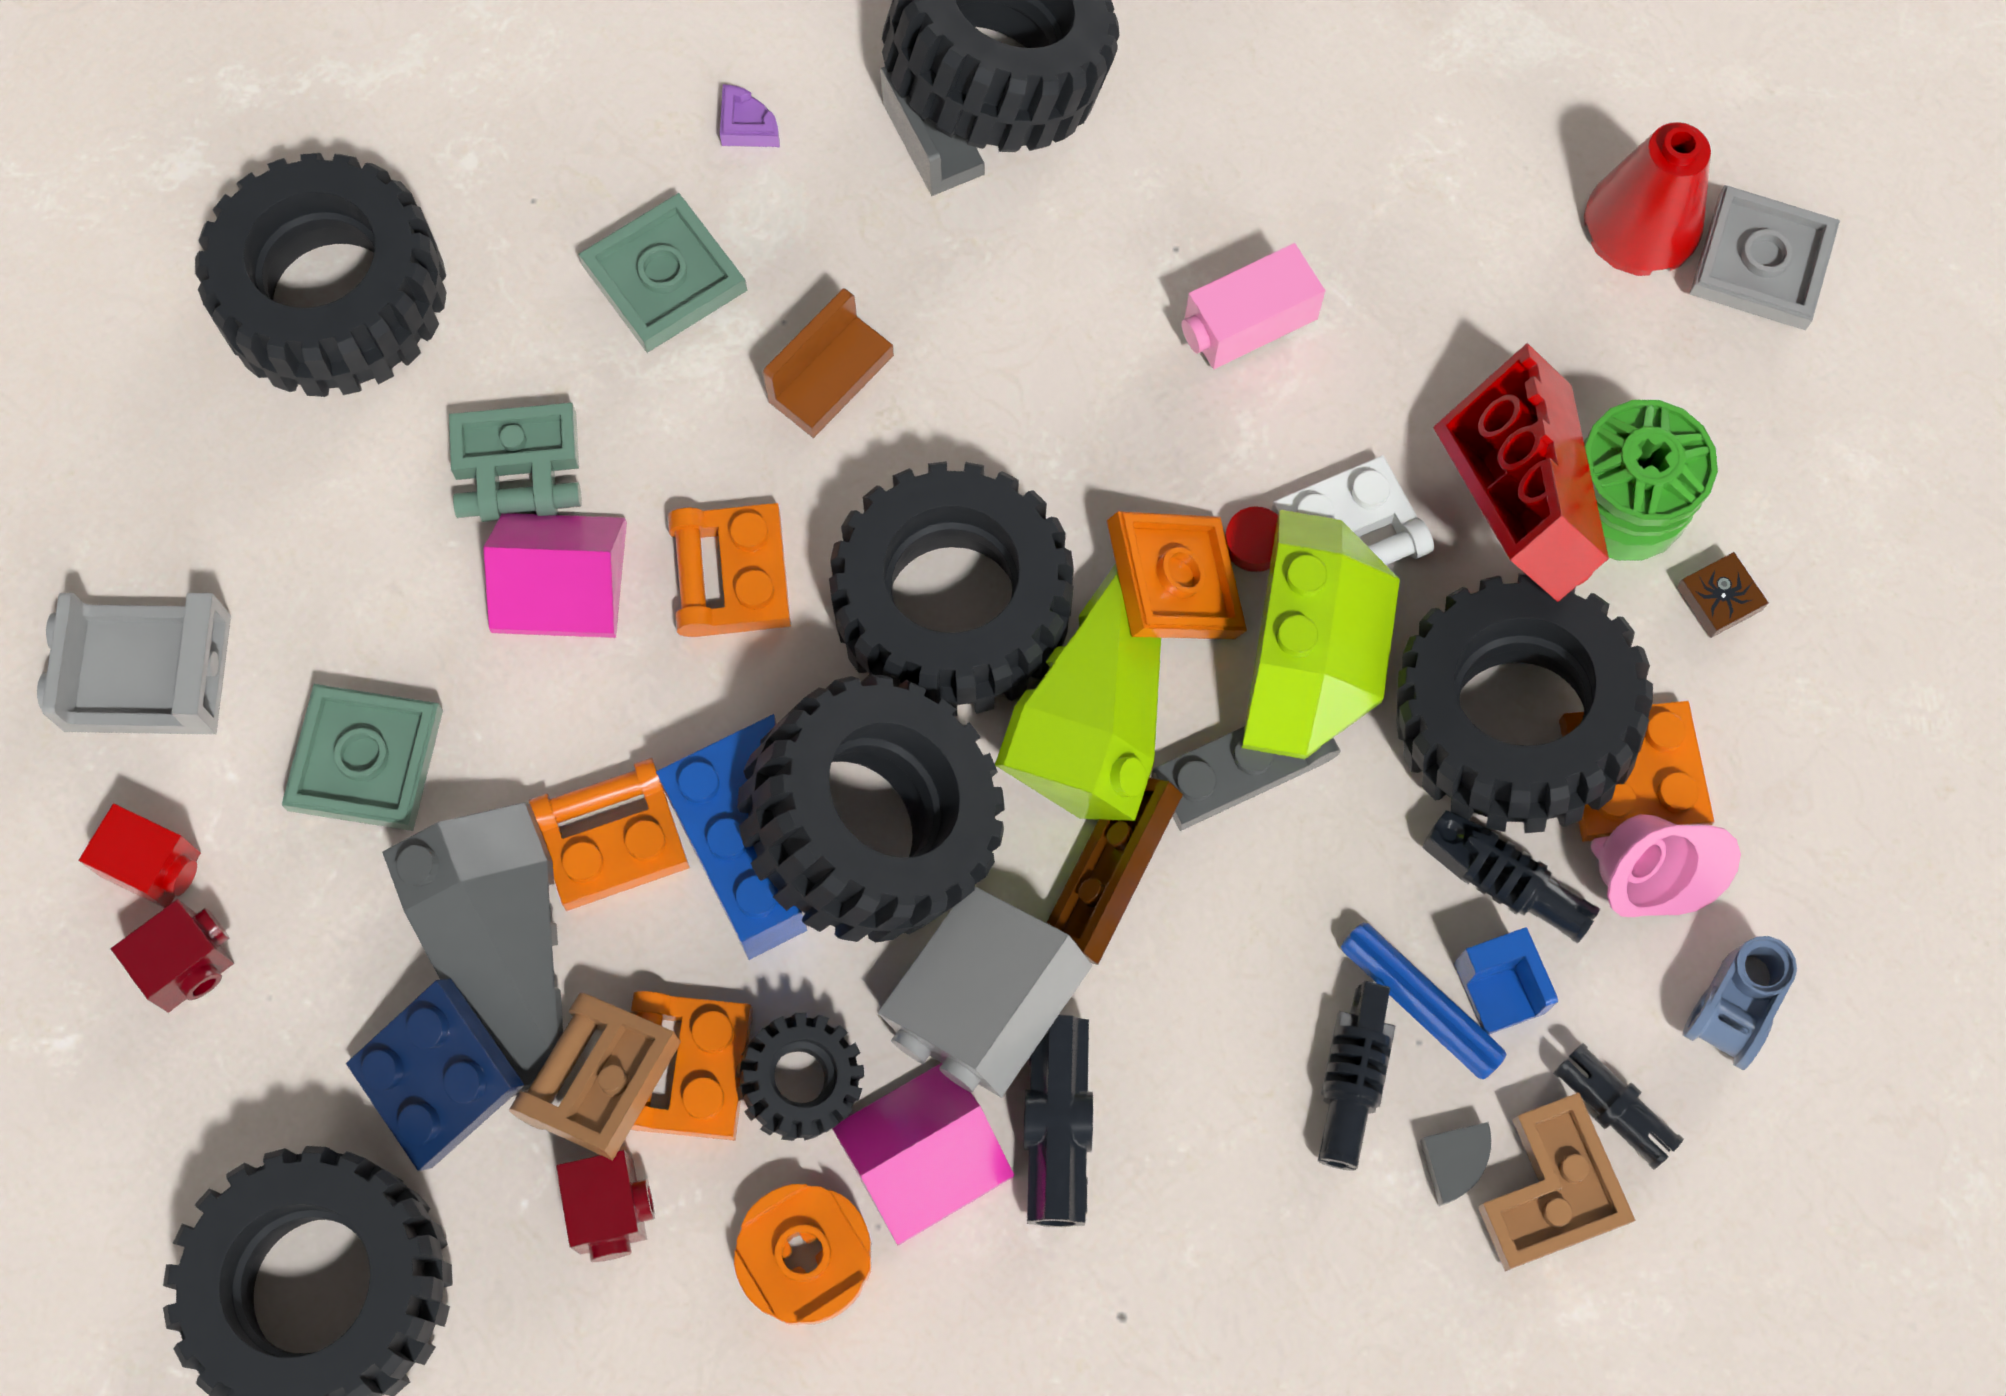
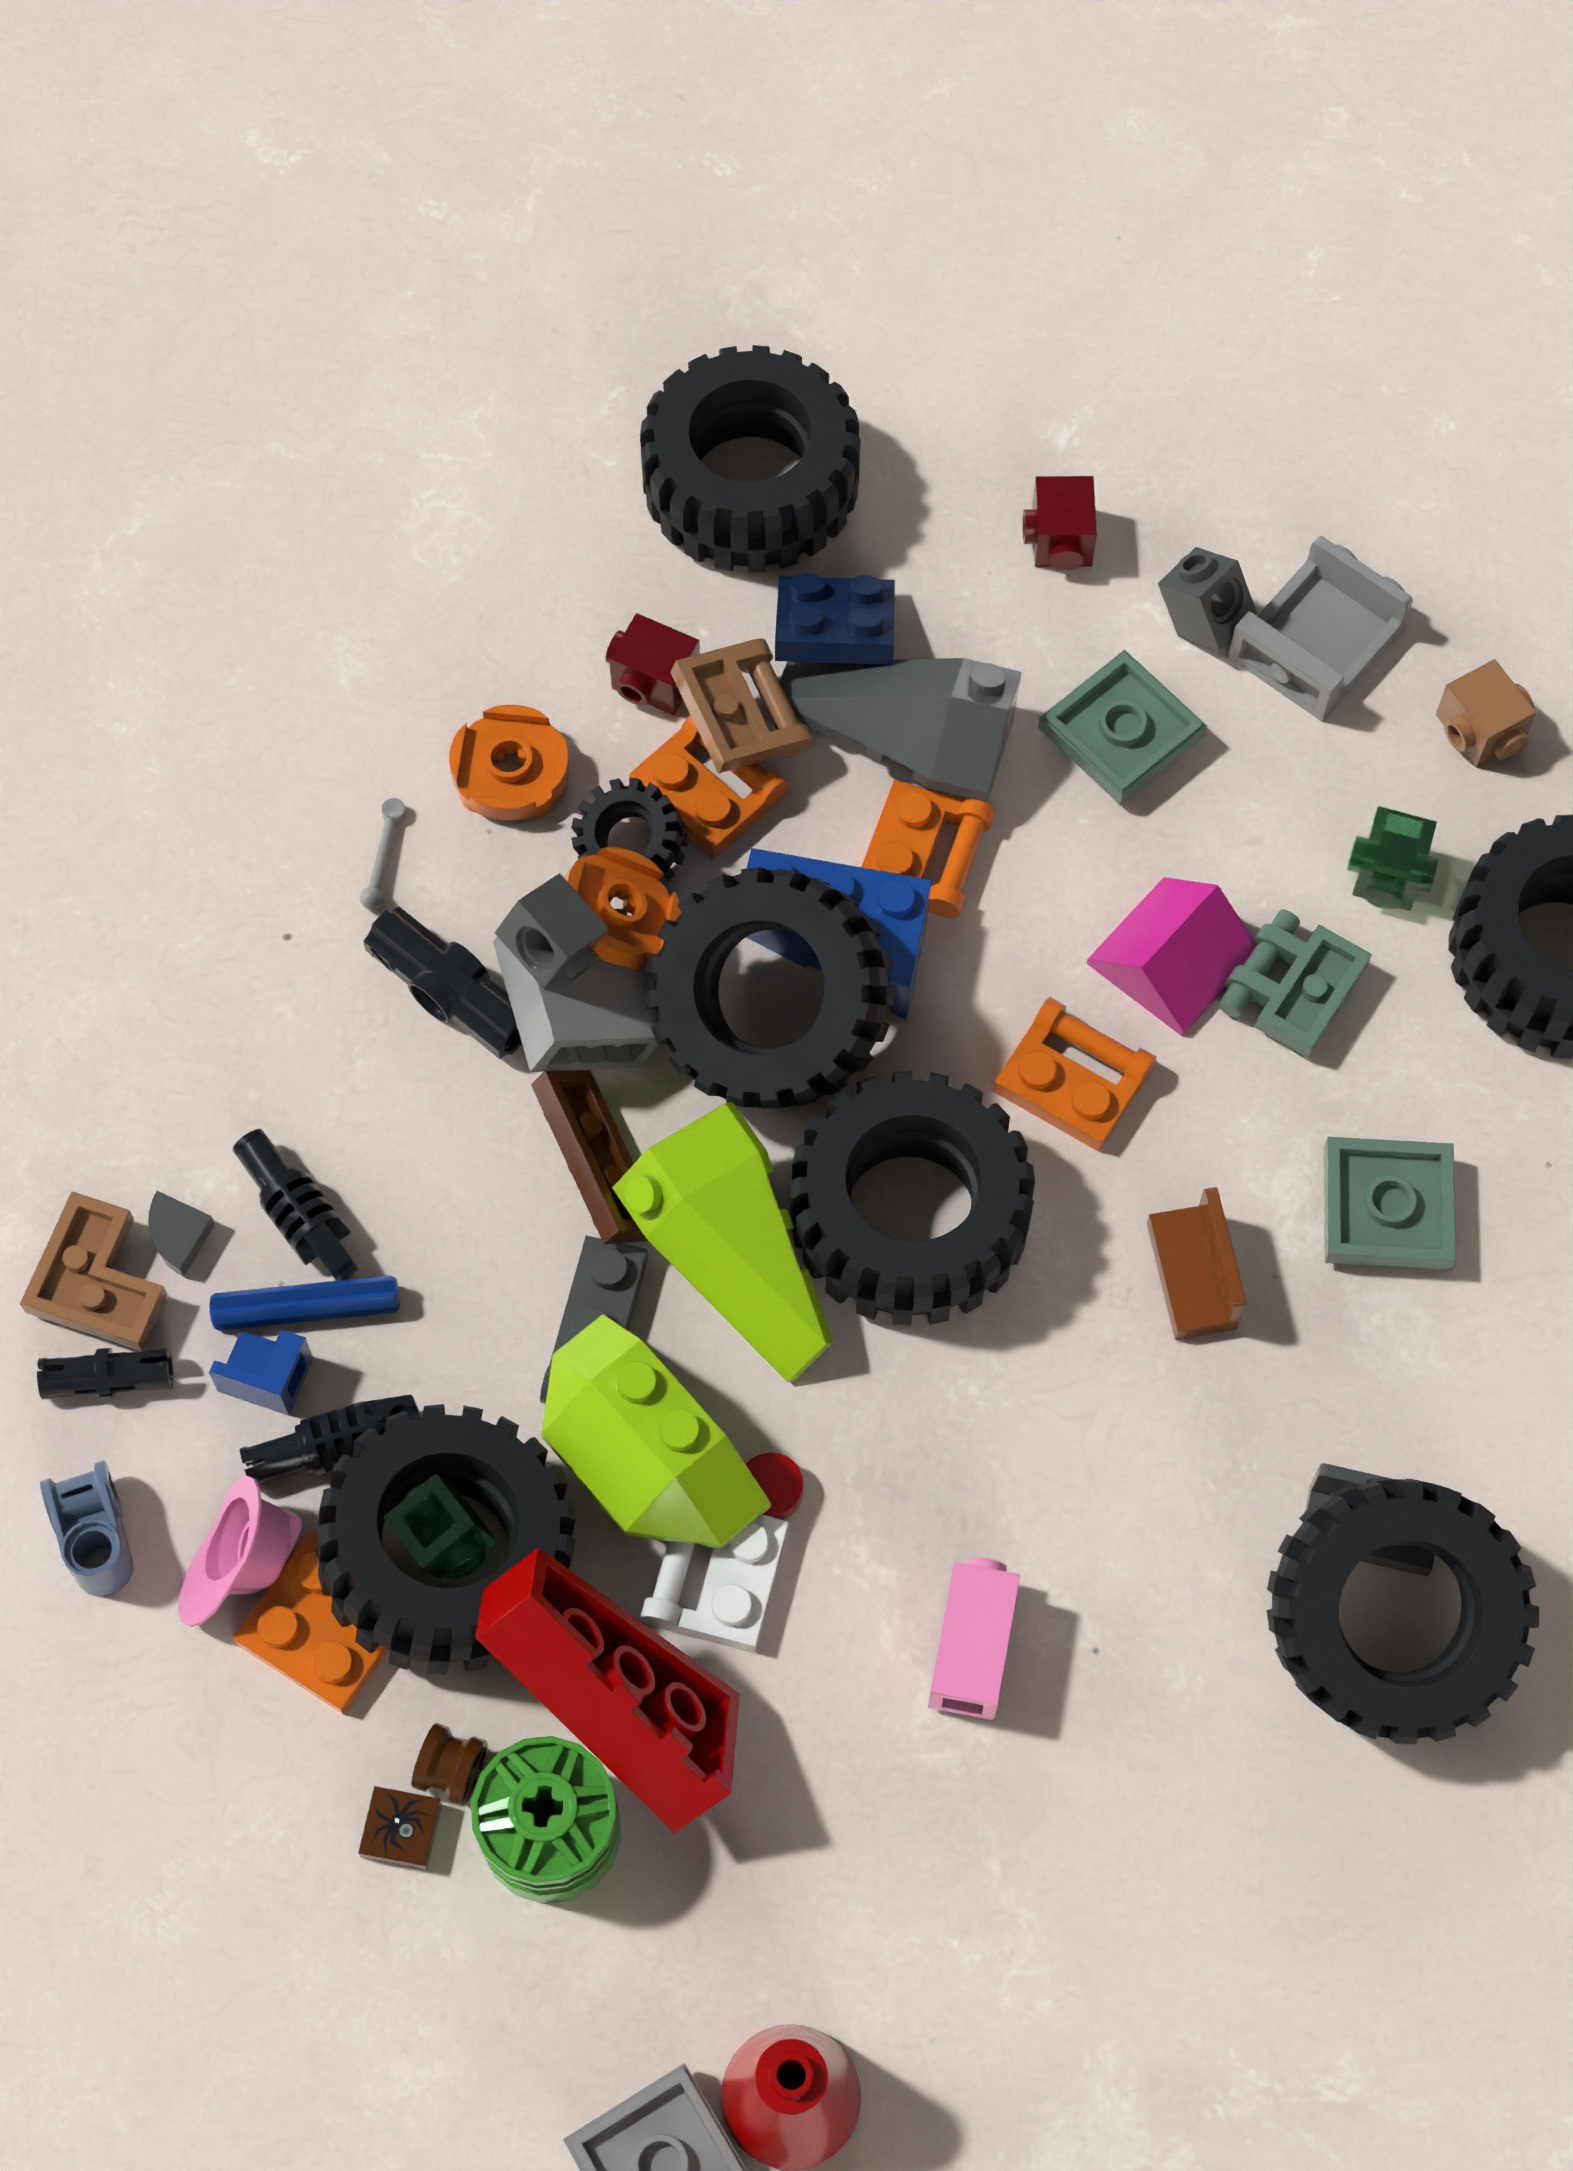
camera: 130 degrees right, 5 degrees down
(136, 477) = (1486, 714): none -> medium nougat brick
(141, 856) = (1154, 541): red brick -> none
(177, 765) = (1206, 597): none -> dark grey brick
(342, 457) = (1394, 859): none -> clear green brick
(746, 120) = (1503, 1383): medium lavender tile -> none
(910, 1028) = (636, 882): none -> orange plate
(923, 1153) = (498, 867): slope -> none
(929, 1326) = (393, 813): none -> light grey hinge
(978, 1007) = (553, 932): none -> dark grey brick
(1176, 576) = (784, 1382): orange plate -> none
(1529, 693) = (441, 1530): none -> clear green brick
(1656, 588) = (449, 1764): none -> reddish brown wheel

